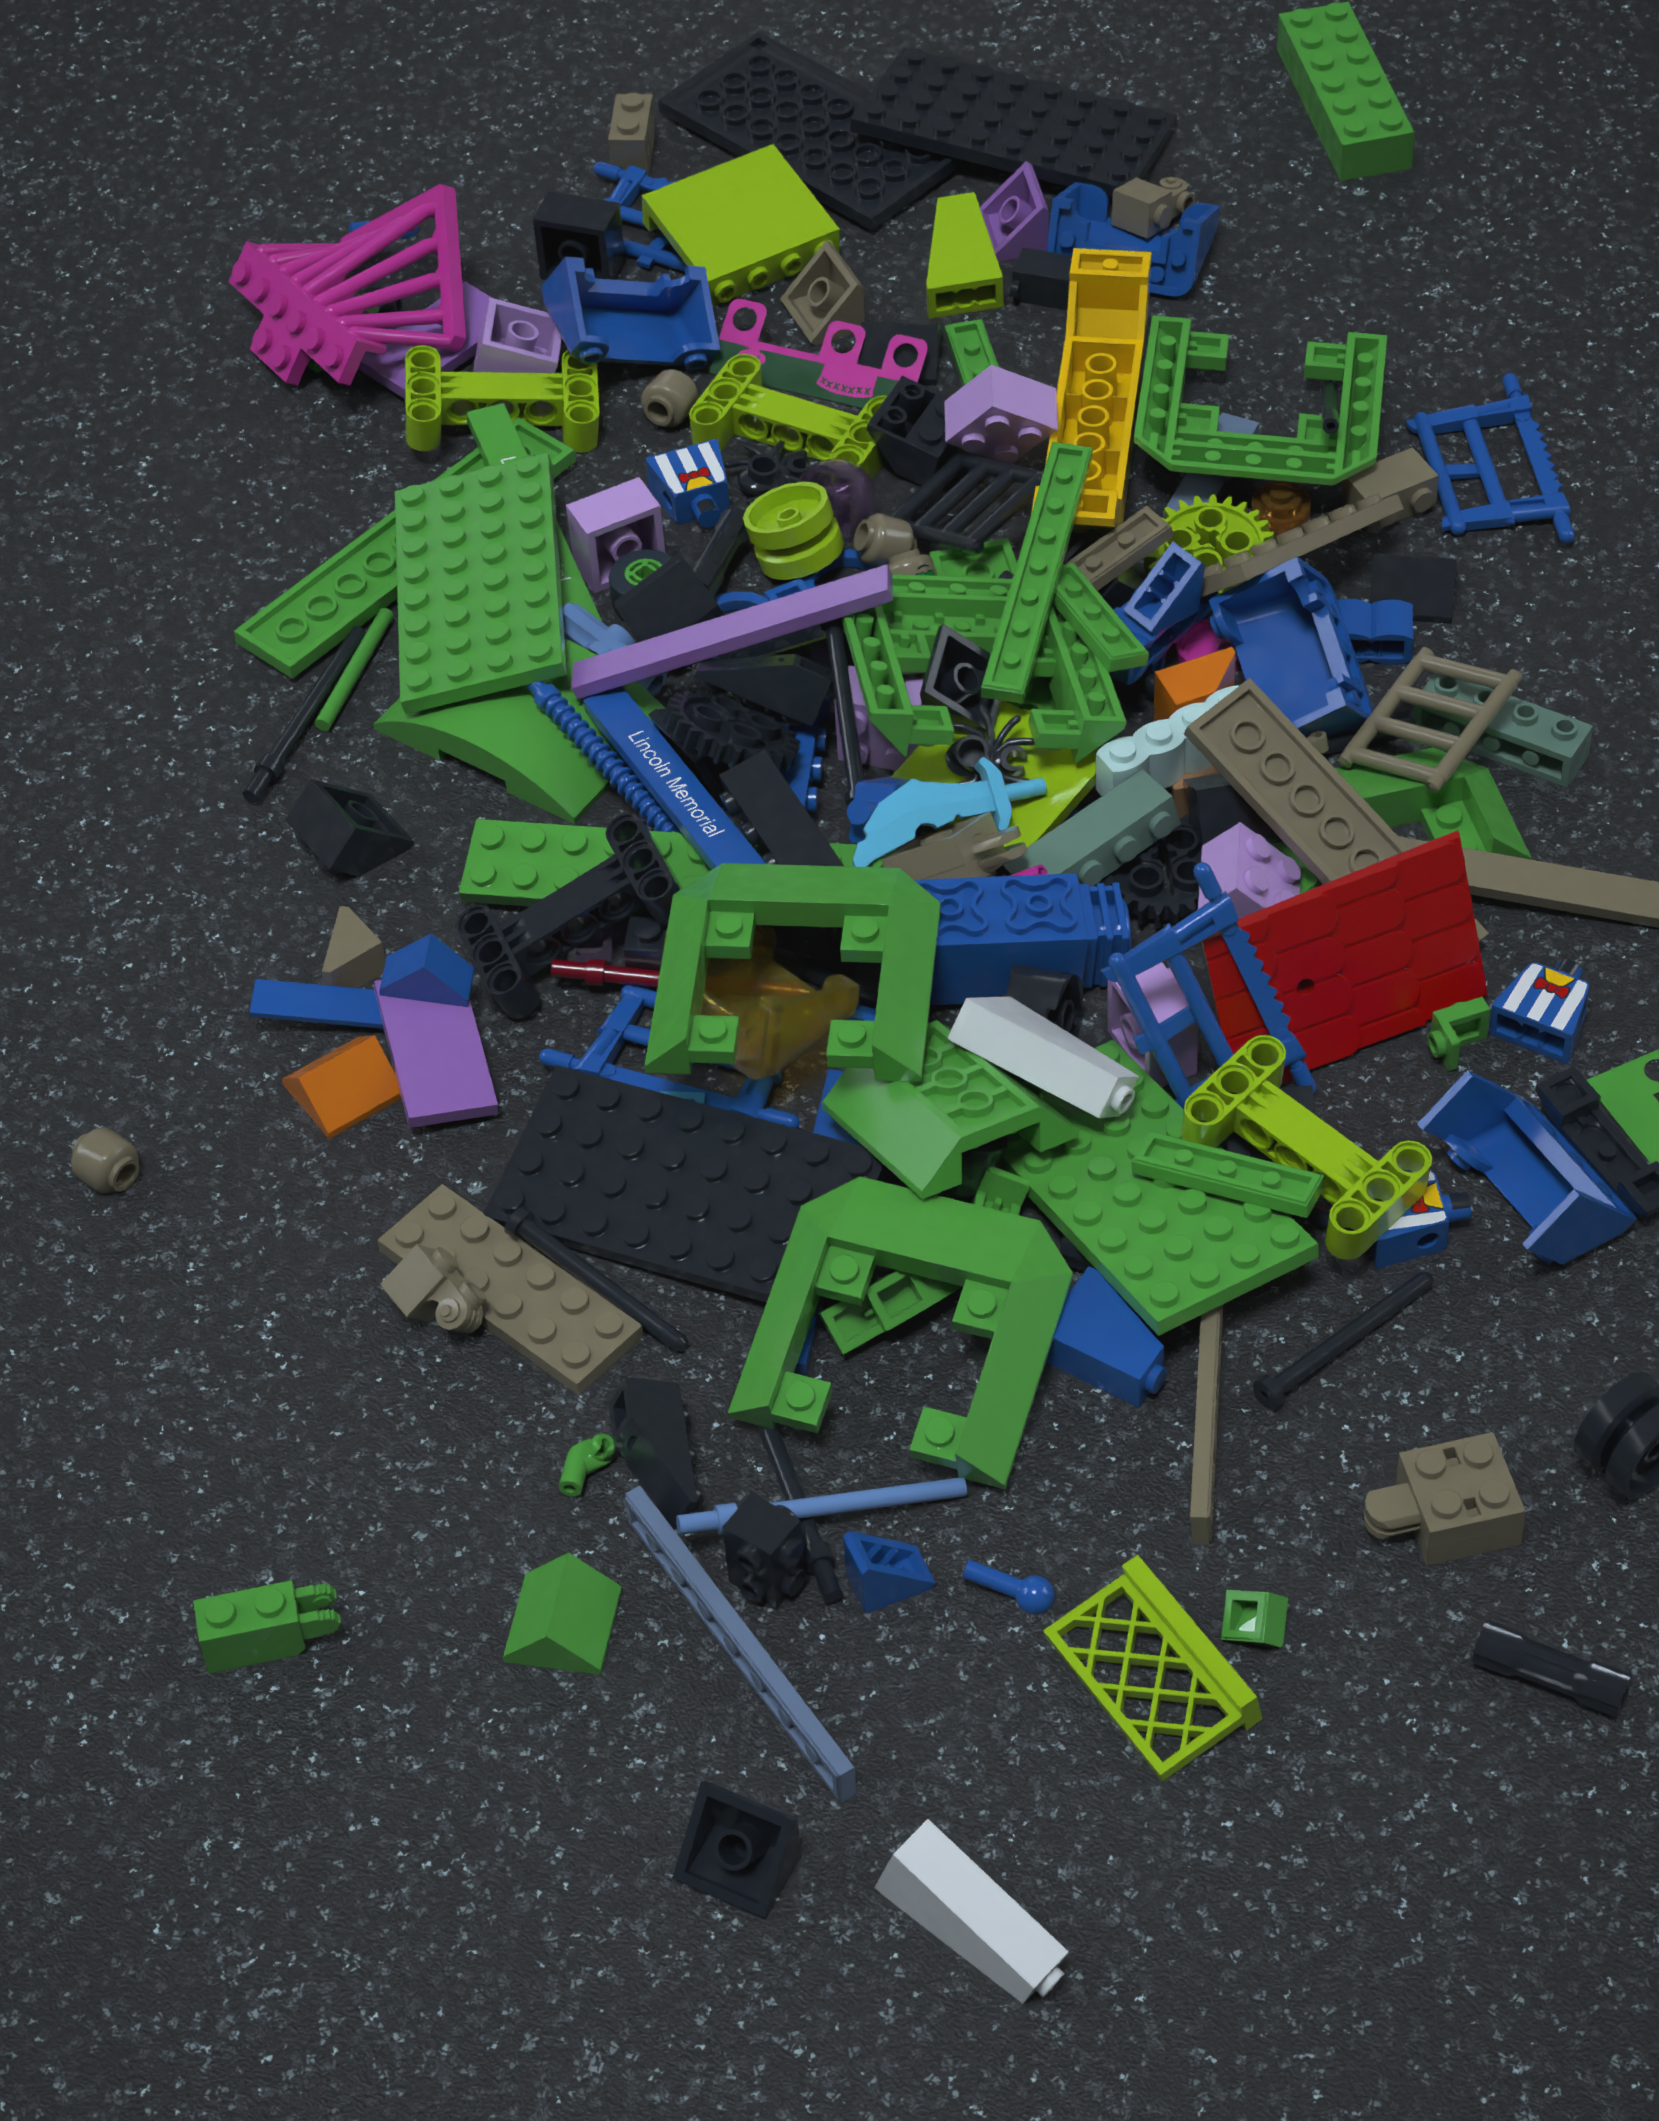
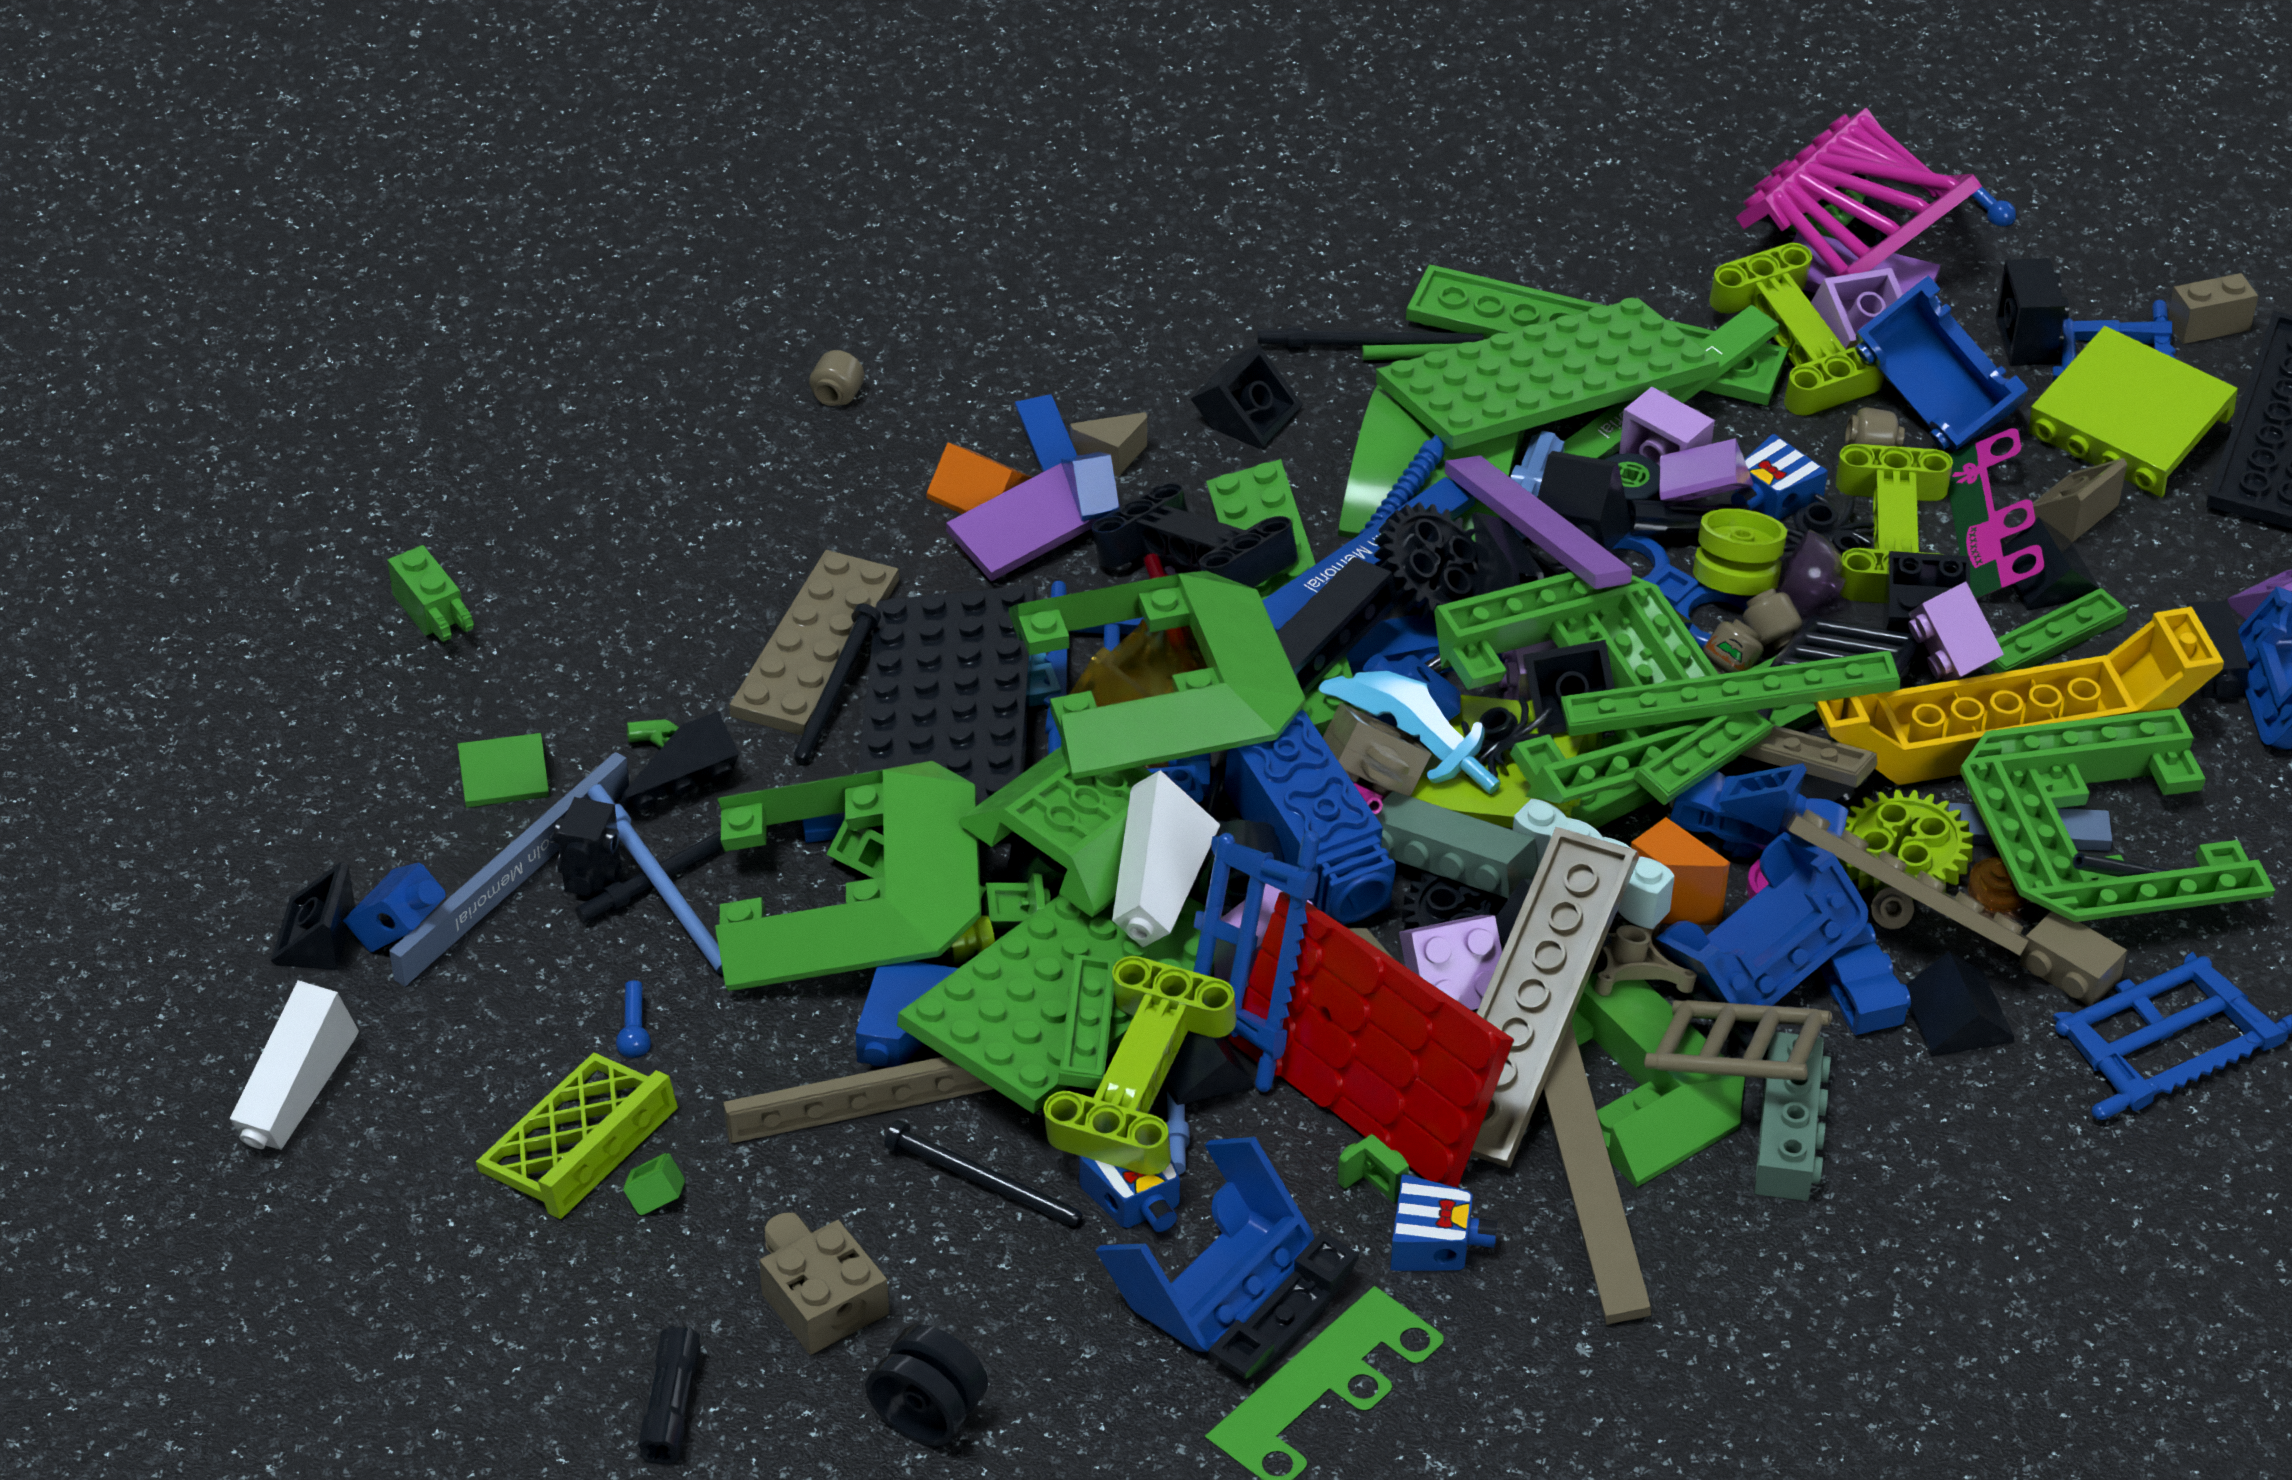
camera: 65 degrees right, 5 degrees down
(431, 1287) = (776, 586): dark tan brick -> none
(693, 514) = (1703, 472): none -> medium lavender slope
(767, 1750) = (405, 895): none -> blue torso
(884, 1570) = (610, 931): blue slope -> none
(962, 260) = (2199, 567): lime slope -> none

